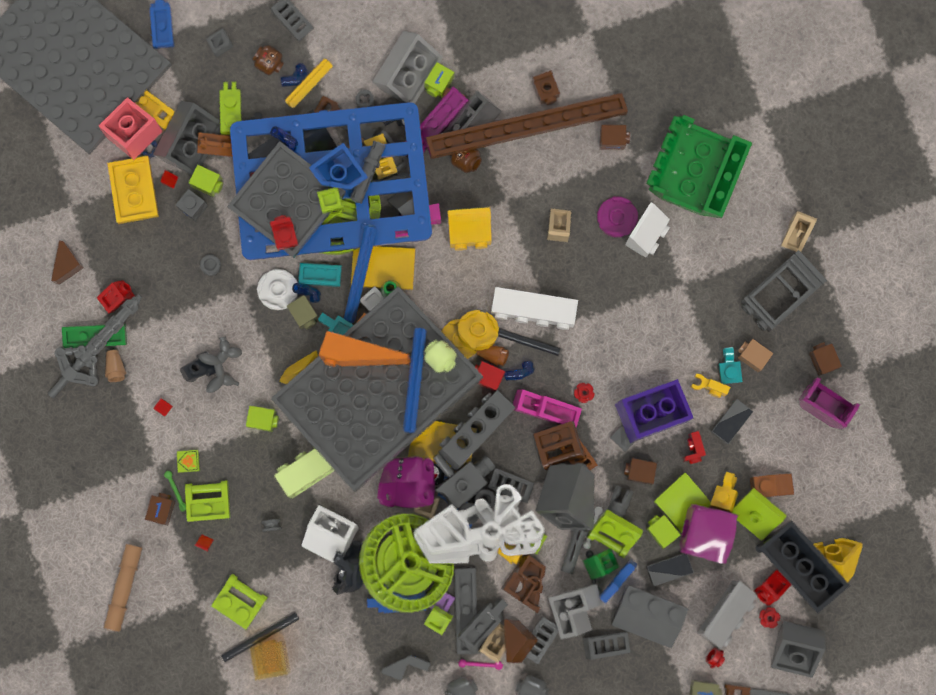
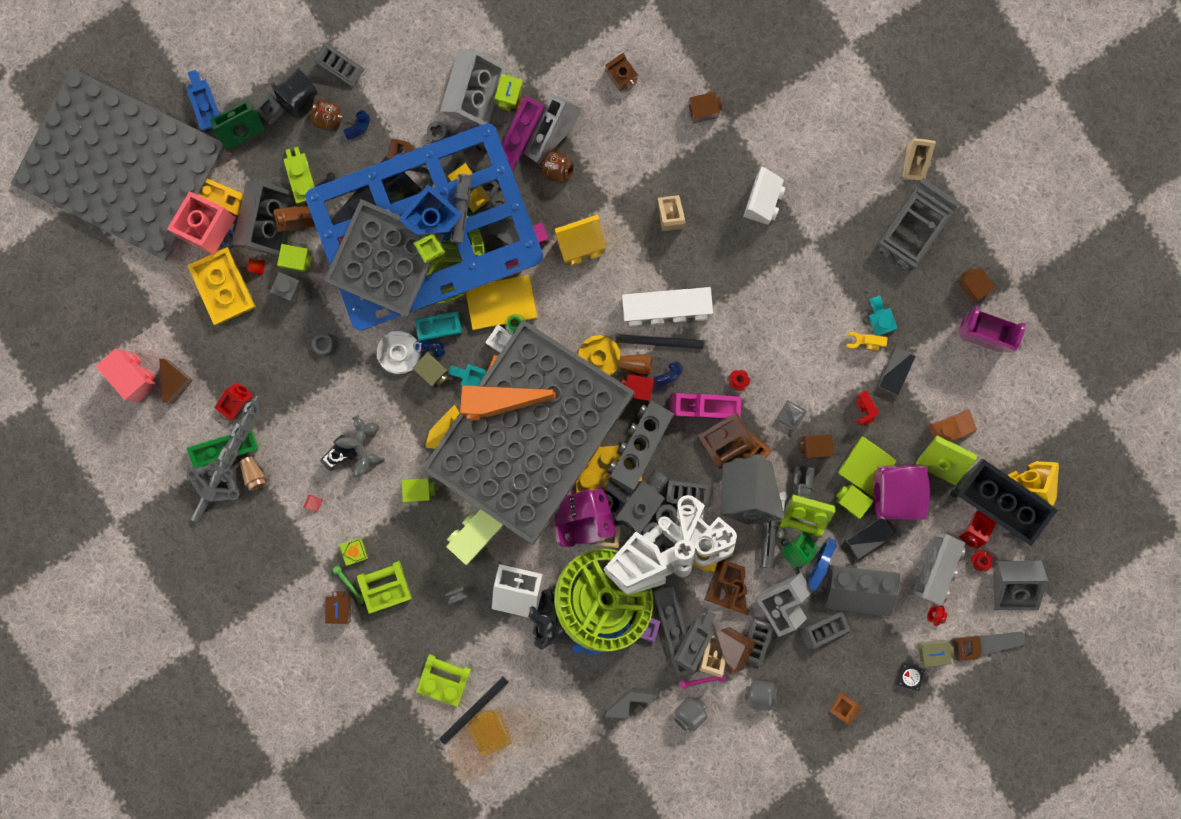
camera: 15 degrees left, 5 degrees up
(26, 247) = (127, 375): none -> coral brick
(122, 587) = (321, 696): medium nougat piece -> none
(195, 41) = (240, 114): none -> dark green brick
(204, 542) = (392, 630): red piece -> none
(245, 32) = (294, 91): none -> black piece
(284, 232) = (390, 294): red bracket -> none
(285, 137) = (365, 193): clear blue arm -> none
(308, 83) = (374, 129): yellow axle -> none
(360, 273) = (479, 308): blue axle -> none
(414, 380) = (565, 414): blue axle -> none
(438, 620) = (649, 648): lime tile -> none
(440, 356) = (586, 383): yellowish green head -> none
(477, 330) = (615, 343): yellow tile -> none
(526, 125) = (611, 118): reddish brown plate -> none
(619, 222) = (728, 196): magenta tile -> none
(654, 411) = (816, 382): dark purple brick -> none
(697, 168) = (800, 118): green slope -> none
(725, 497) = (908, 450): yellow plate -> none
(754, 355) = (903, 298): medium nougat brick -> none

